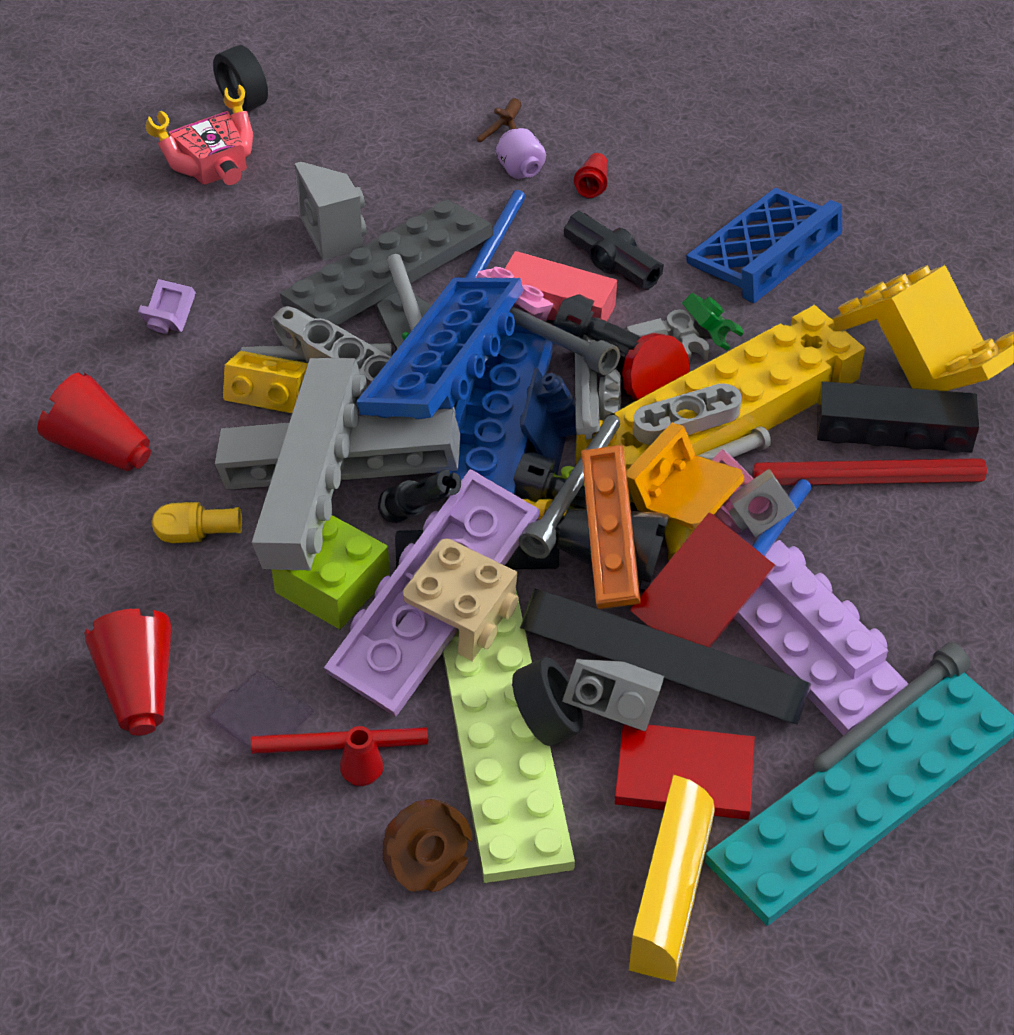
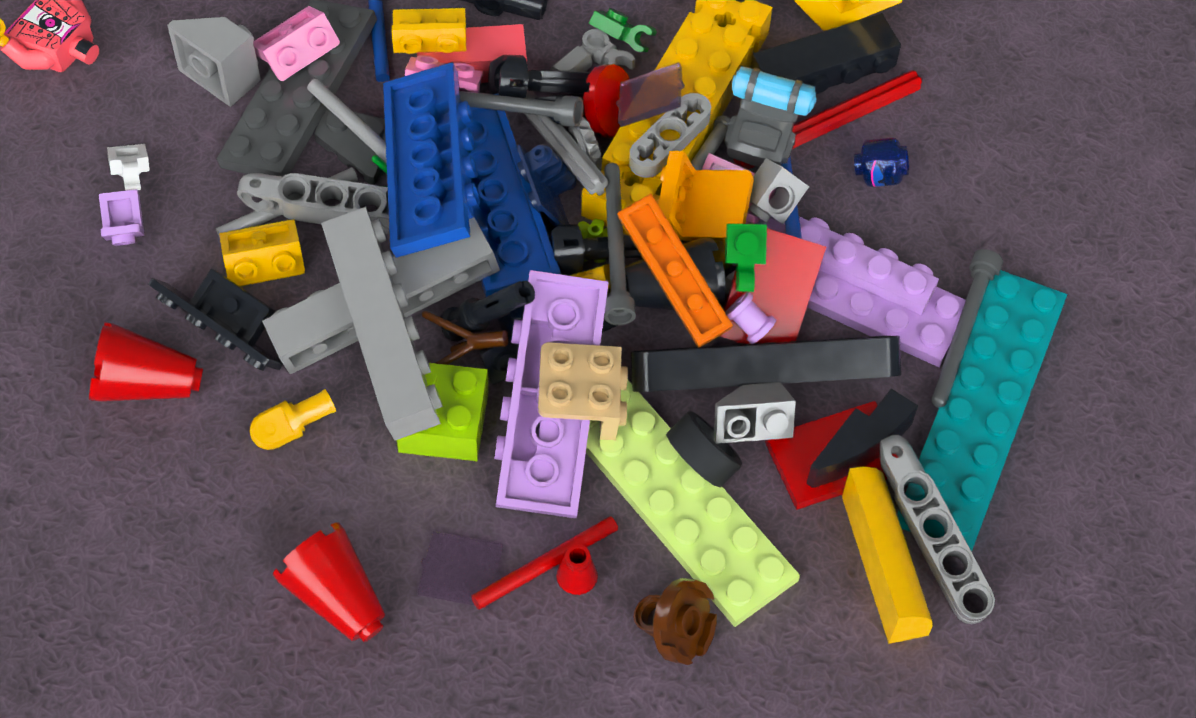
camera: 30 degrees left, 10 degrees up
(200, 413) = (226, 310): none -> black bracket
(203, 268) = (128, 163): none -> white plate
(393, 519) = (473, 342): none -> reddish brown plant
(402, 224) = (296, 42): none -> bright pink bracket
(524, 252) = (429, 30): none -> yellow bracket
(664, 602) = (750, 318): none -> lavender bush
(690, 532) = (745, 247): none -> green plate
(691, 374) = (650, 94): none -> piece
(713, 760) = (859, 438): none -> black slope
(732, 804) = (908, 470): none -> light grey piece
(796, 435) = (766, 116): none -> dark grey piece
(898, 526) = (882, 162): none -> clear blue head

